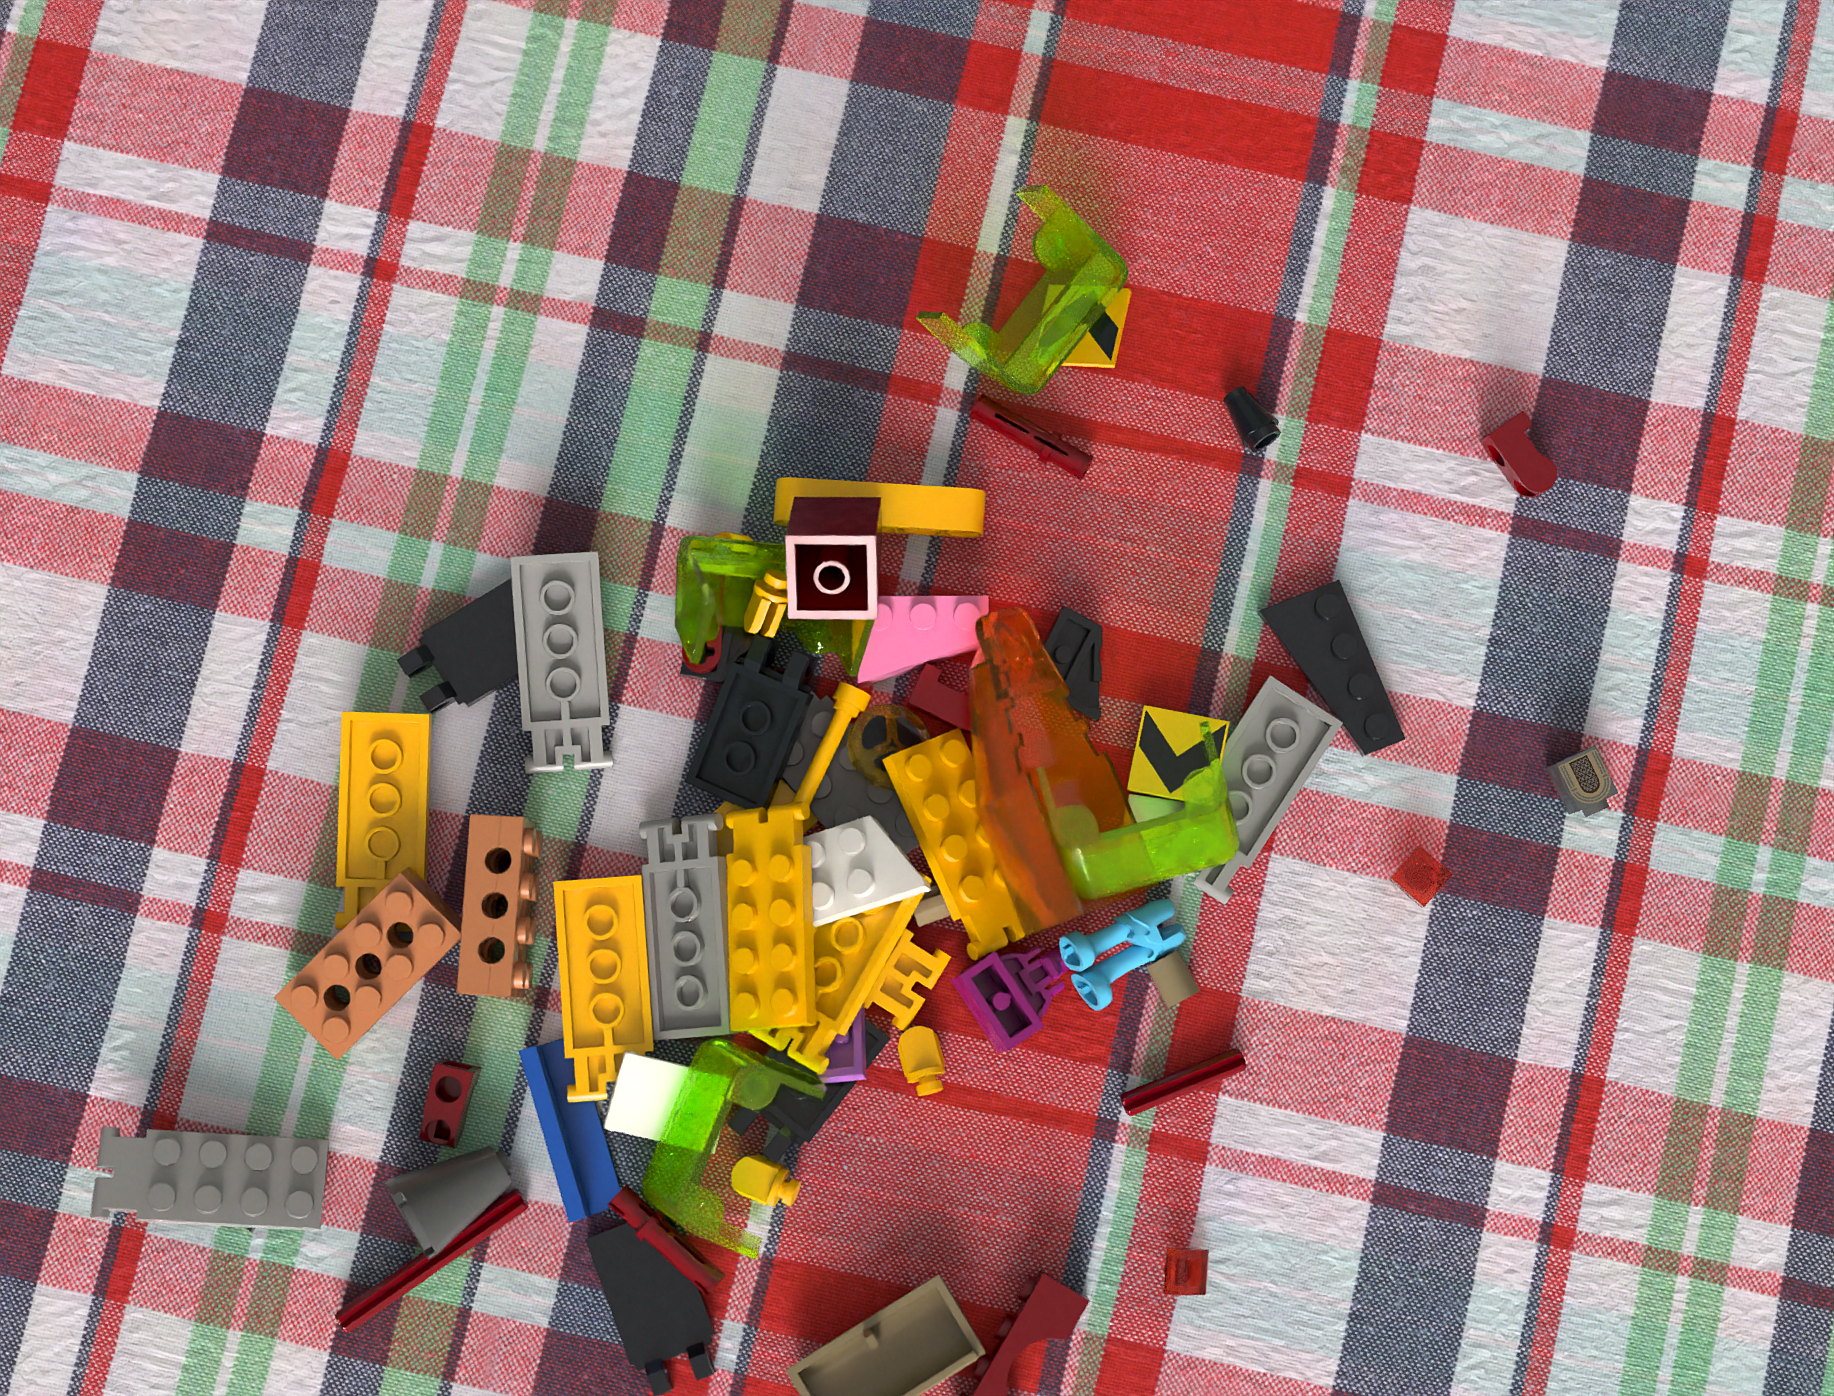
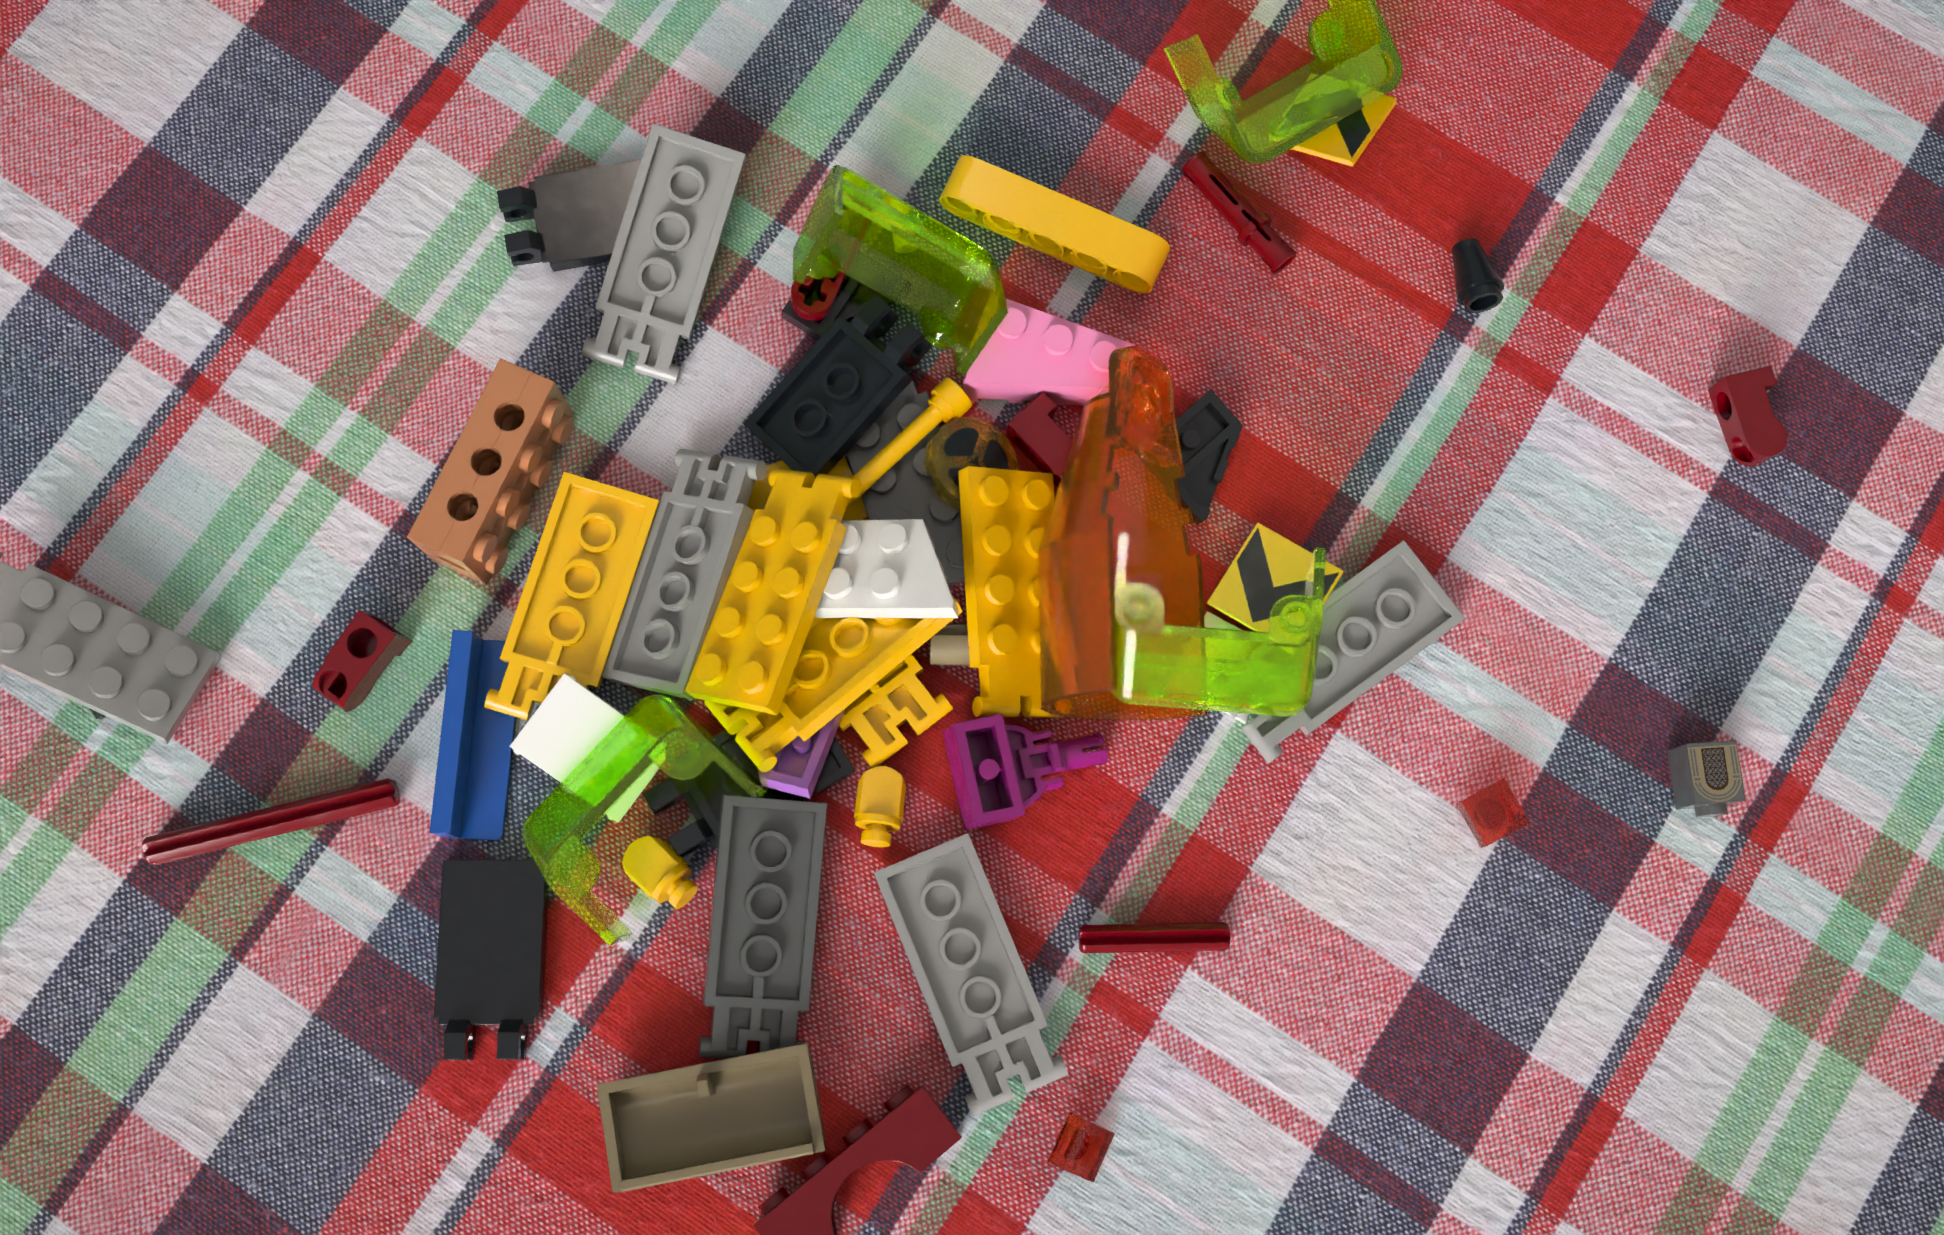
camera: 15 degrees right, 5 degrees down
(312, 994) = (311, 467): nougat brick -> none
(381, 804) = (416, 346): yellow hinge -> none
(449, 1195) = (315, 756): dark grey cone -> none
(661, 1235) = (522, 883): dark red pin -> none
(767, 604) = (900, 251): yellow arm -> none
(834, 557) = (986, 239): dark red slope -> none
(865, 1191) = (762, 923): none -> dark grey hinge
(1044, 1165) = (969, 971): none -> light grey hinge
(1134, 927) = (1161, 749): medium azure piece -> none
(1172, 978) = (1183, 821): dark tan piece -> none
(1333, 656) = (1478, 555): black wing -> none

